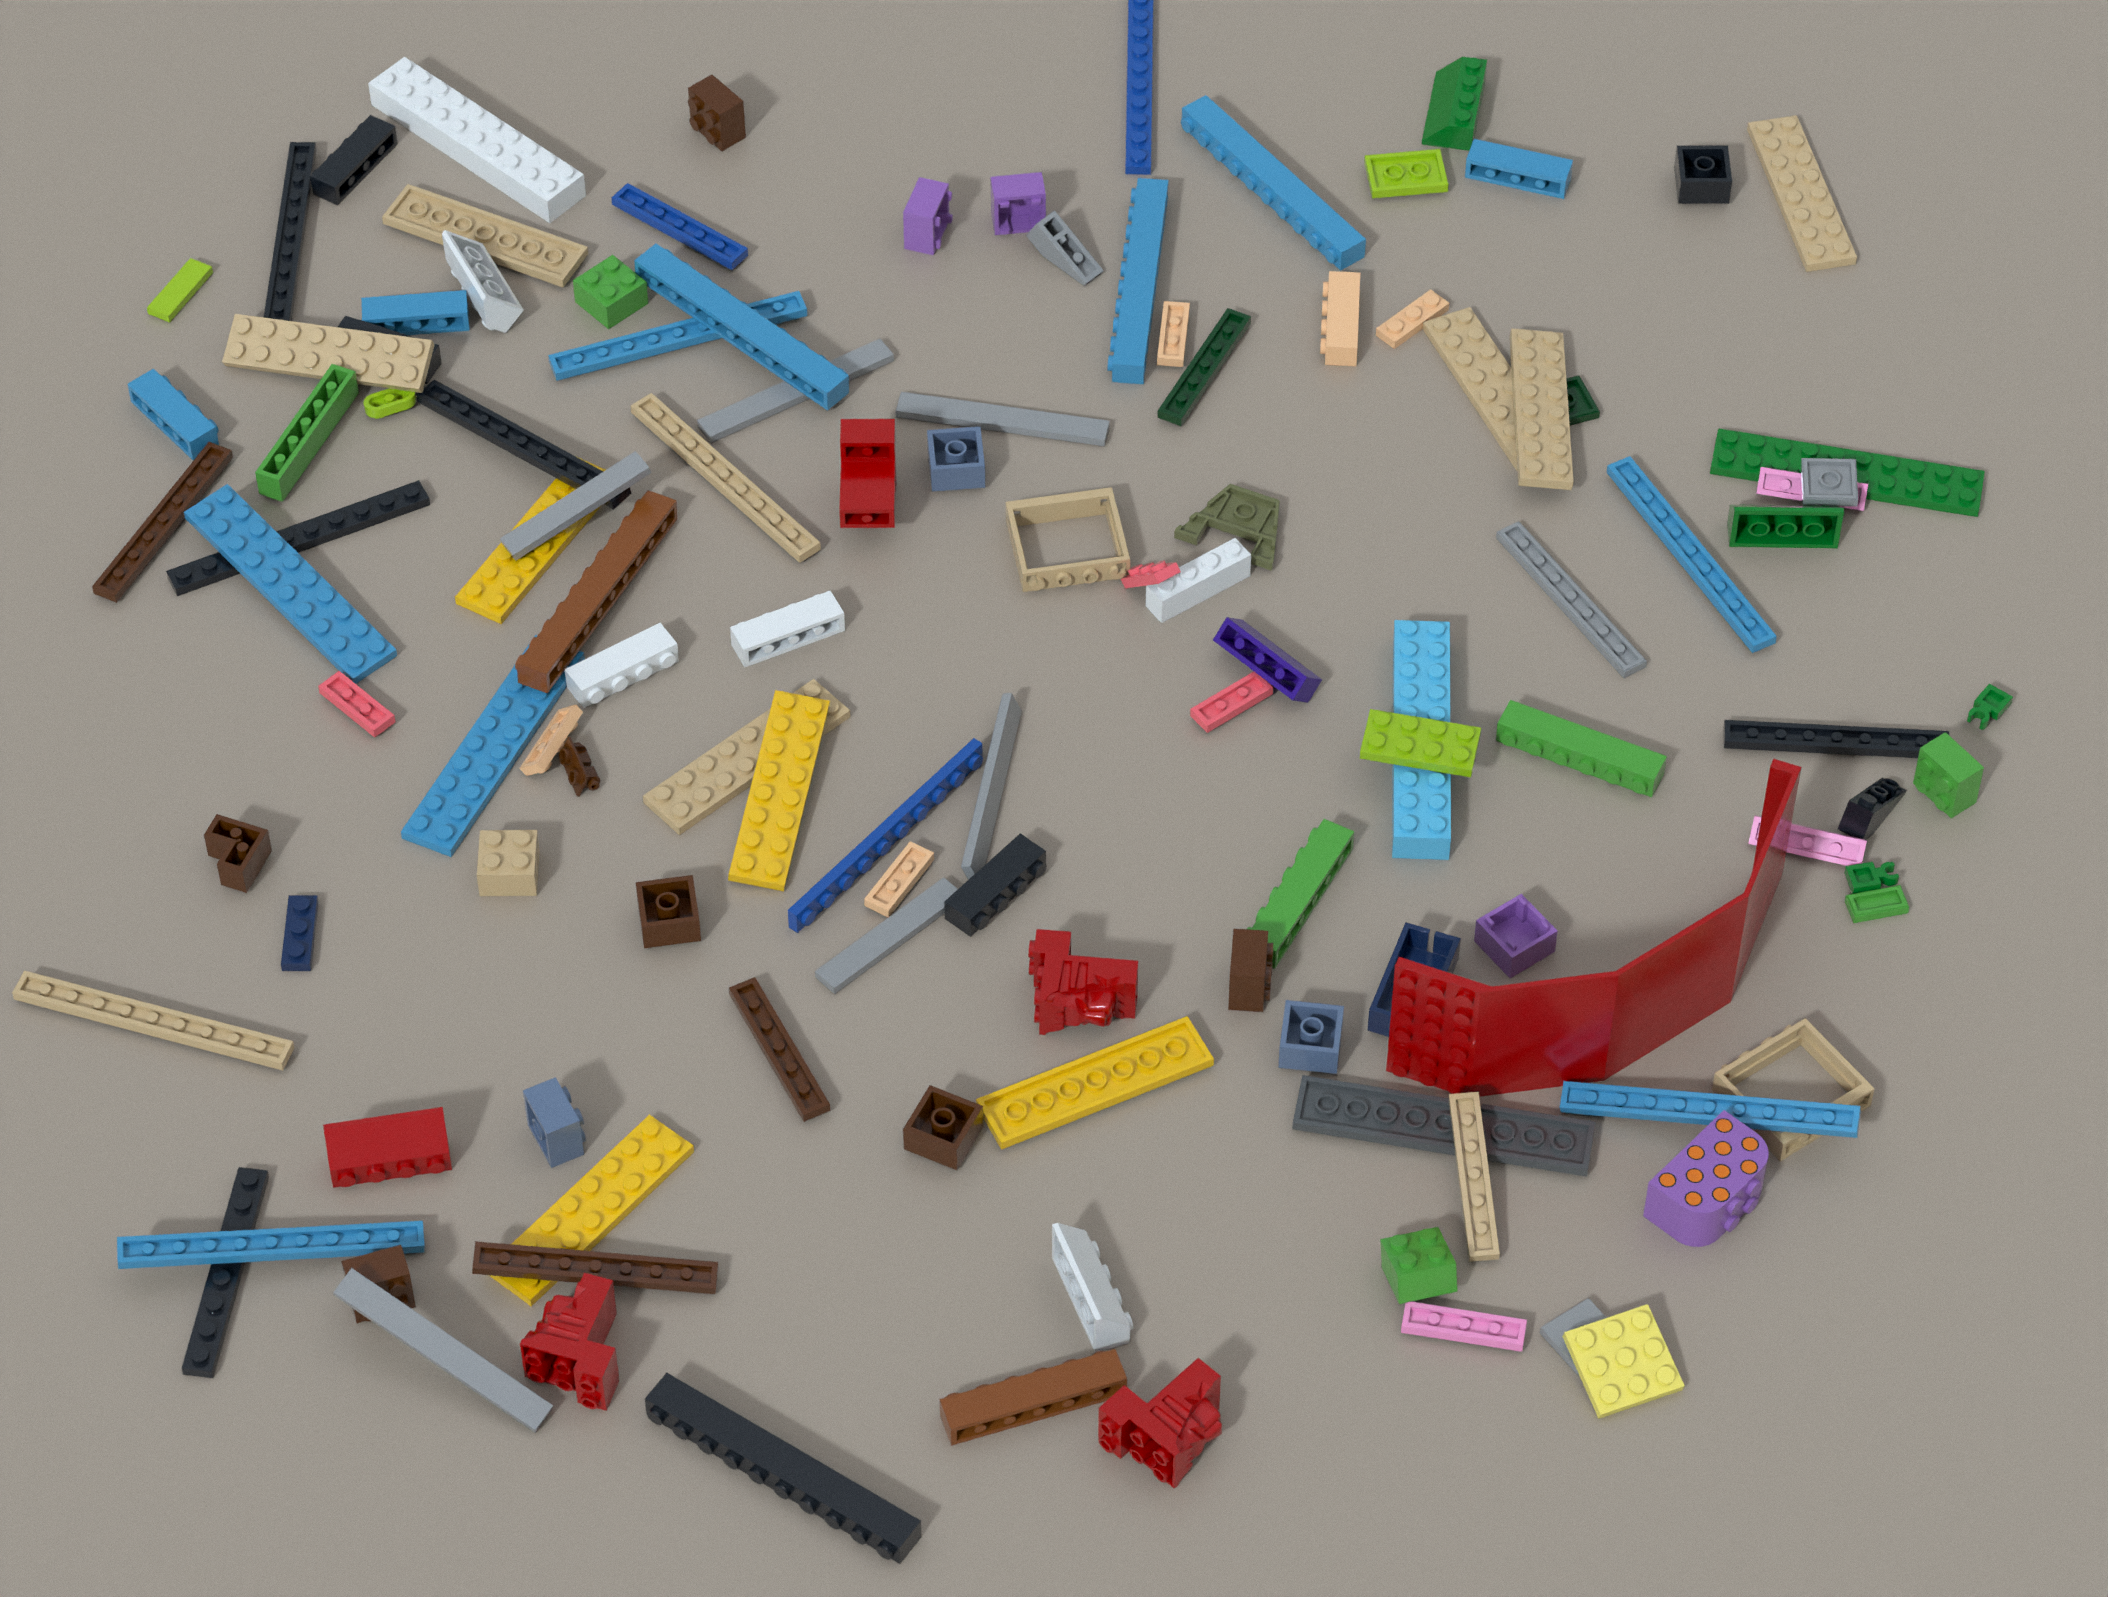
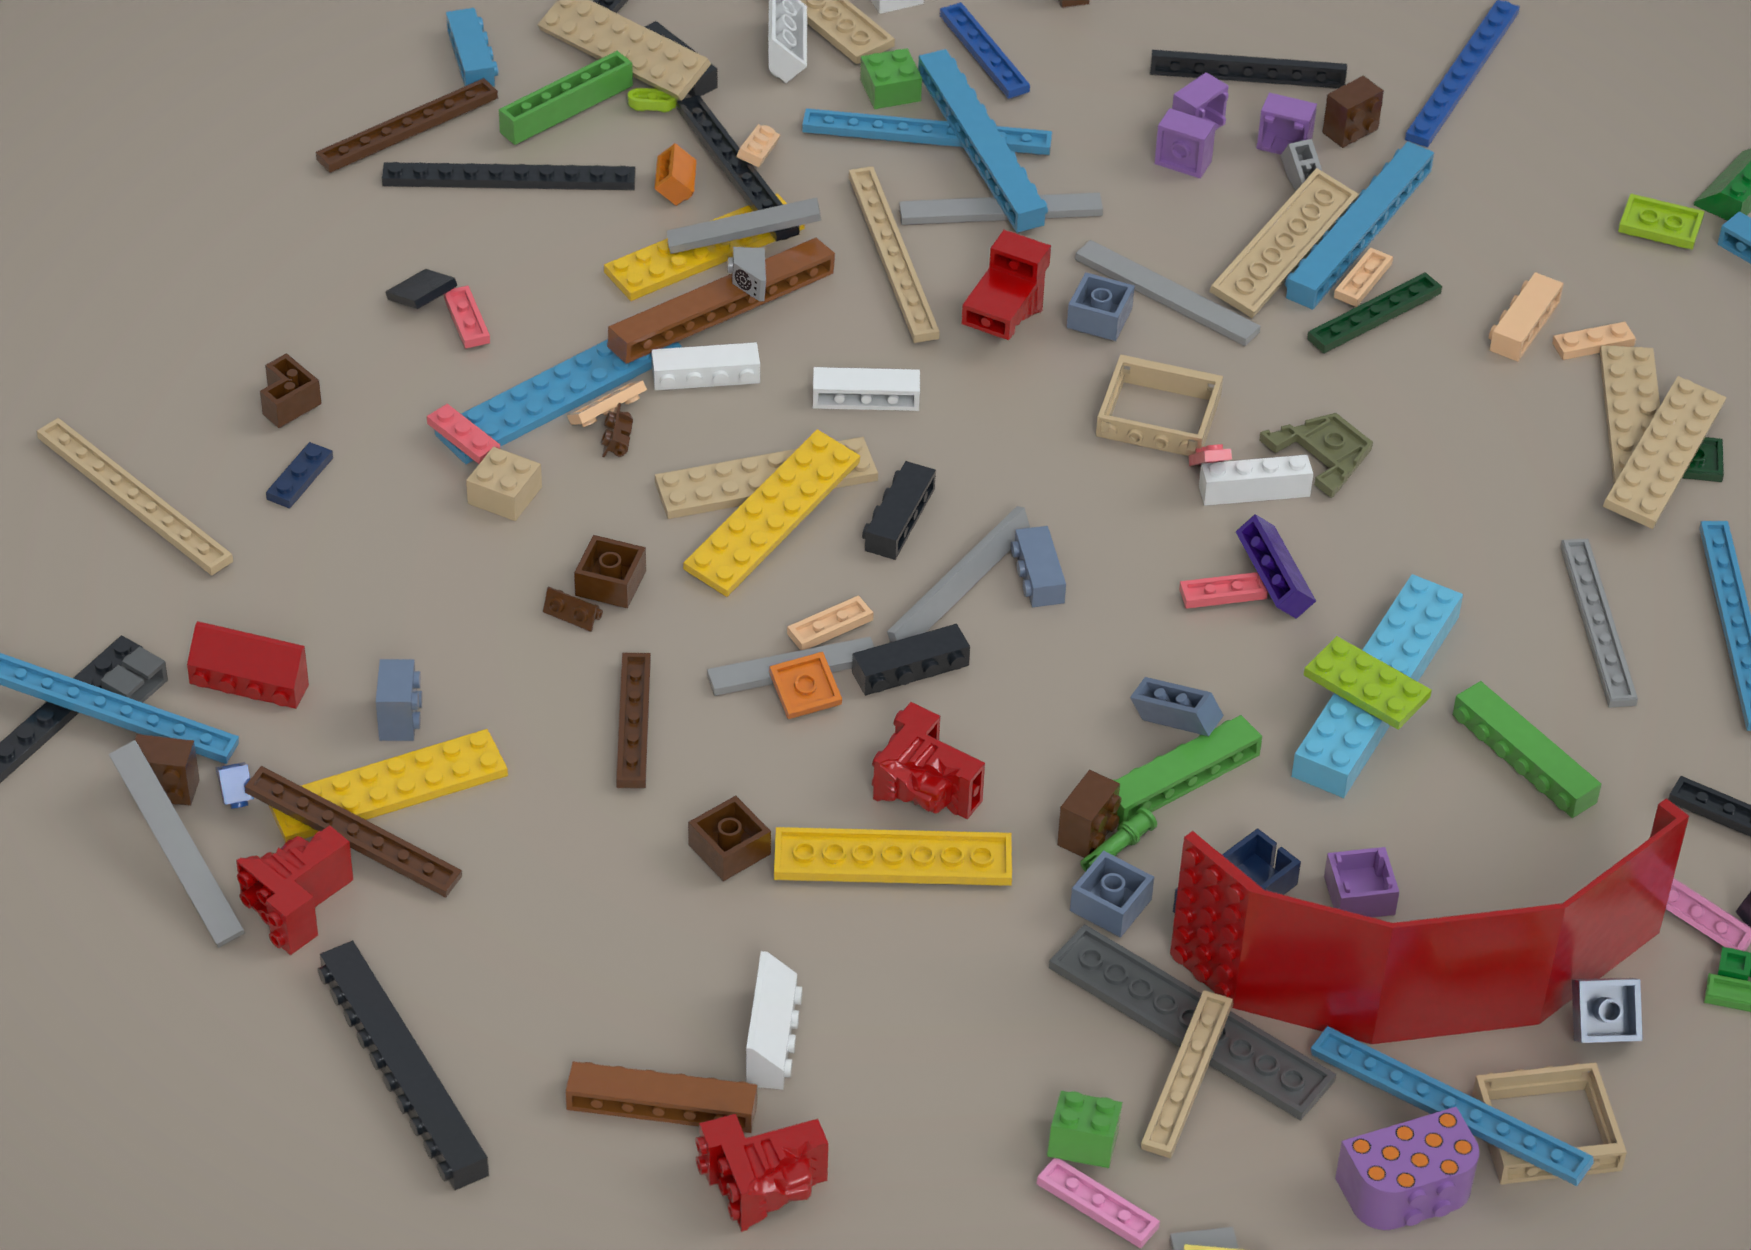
camera: 25 degrees right, 5 degrees down
(283, 1201) = (137, 676): none -> dark grey piece
(290, 584) = (474, 207): dark azure plate -> none
(294, 692) = (421, 288): none -> black tile
(419, 312) = (721, 41): dark azure brick -> none
(437, 828) = (461, 432): none -> coral plate
(449, 1267) = (232, 784): none -> slope
(467, 474) = (675, 174): none -> orange brick
(529, 412) = (758, 145): none -> light nougat plate
(616, 553) = (748, 270): none -> light grey slope
(651, 963) = (571, 609): none -> reddish brown hinge
(885, 835) = (840, 583): blue plate -> none
(894, 740) = (899, 510): none -> black brick
(916, 950) = (805, 685): none -> orange plate
(934, 257) = (1185, 143): none -> medium lavender container
(941, 154) = (1248, 69): none -> black plate
(1055, 745) = (1039, 566): none -> sand blue brick
(1070, 165) = (1352, 111): none -> reddish brown brick
(1084, 327) = (1283, 243): none -> tan plate
(1265, 834) = (1177, 706): none -> sand blue brick
(1273, 183) = (1532, 189): dark azure brick -> none
(1287, 973) = (1127, 834): none -> bright green pin
(1788, 966) = (1607, 1010): none -> brick

